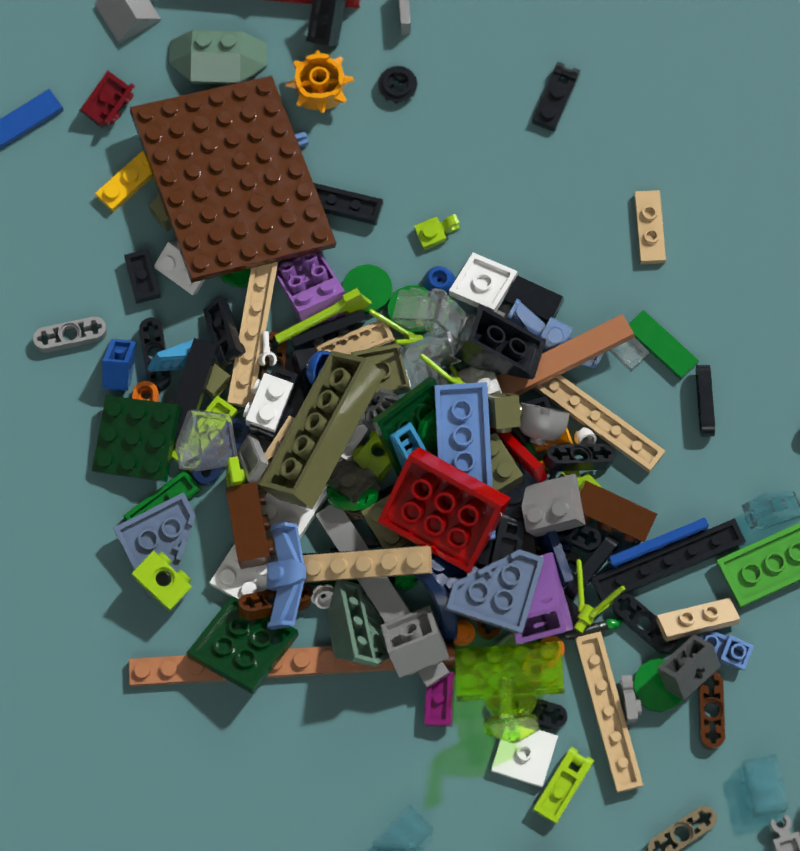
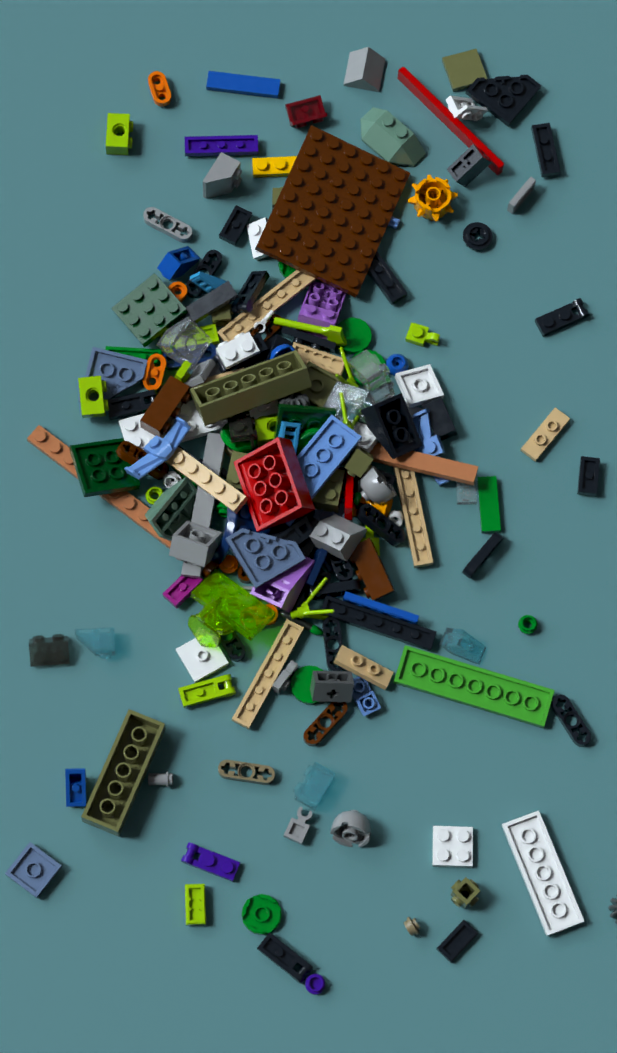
camera: 35 degrees right, 0 degrees up
(50, 206) = (226, 144): none -> dark purple plate
(85, 235) = (222, 176): none -> light grey slope
(201, 498) = (154, 372): none -> orange plate
(208, 553) = (130, 404): none -> black plate
(315, 621) = (153, 490): none -> lime plate
(731, 232) = (588, 476): none -> black plate

